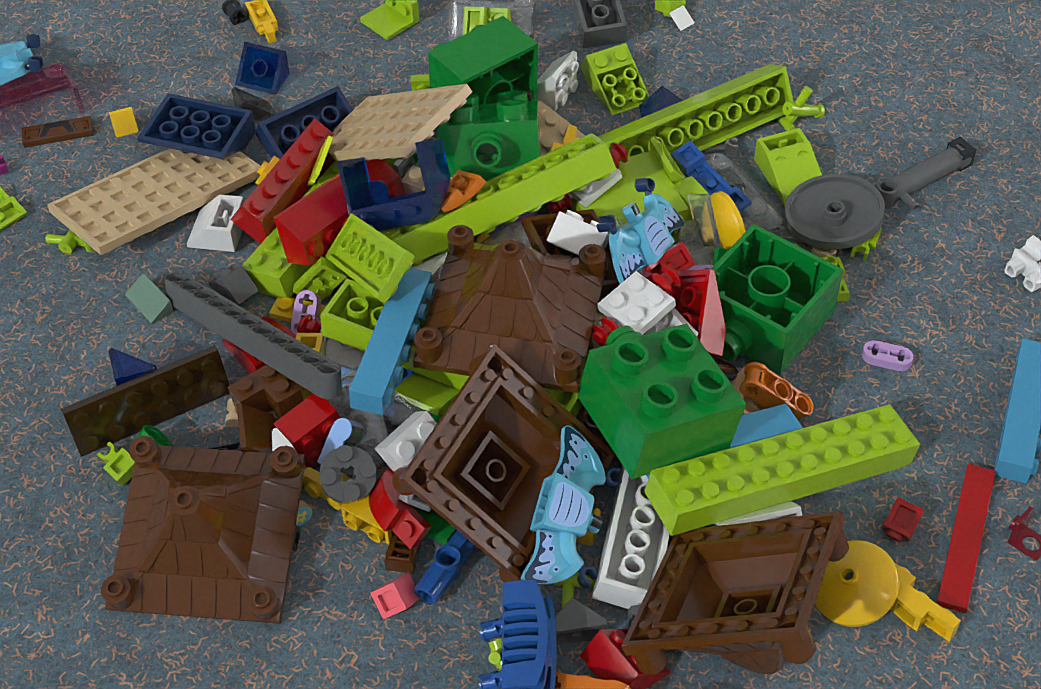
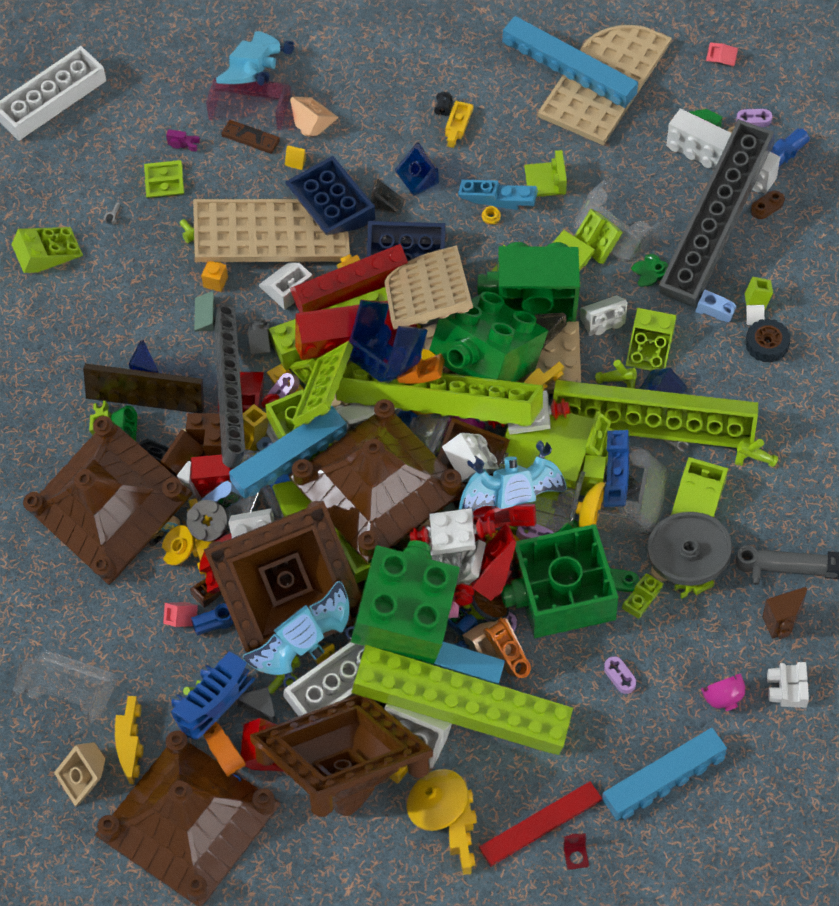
camera: 40 degrees right, 10 degrees up
(109, 82) = (311, 116): none -> light nougat slope
(131, 260) = (214, 276): none -> light orange brick
(318, 527) = (178, 545): none -> yellow dish
(320, 160) = (375, 281): neon yellow piece -> none
(353, 52) = (492, 194): none -> dark azure slope
(367, 69) = (491, 210): none -> yellow plate
(557, 34) = (648, 270): none -> green plate
(625, 116) = (621, 374): none -> lime piece
(644, 28) = (716, 306): none -> light blue leg
(713, 29) = (775, 333): none -> black wheel
(902, 520) = (508, 785): red bracket -> none
(972, 209) = (783, 611): none -> reddish brown slope
(998, 304) = (725, 693): none -> dark pink cylinder

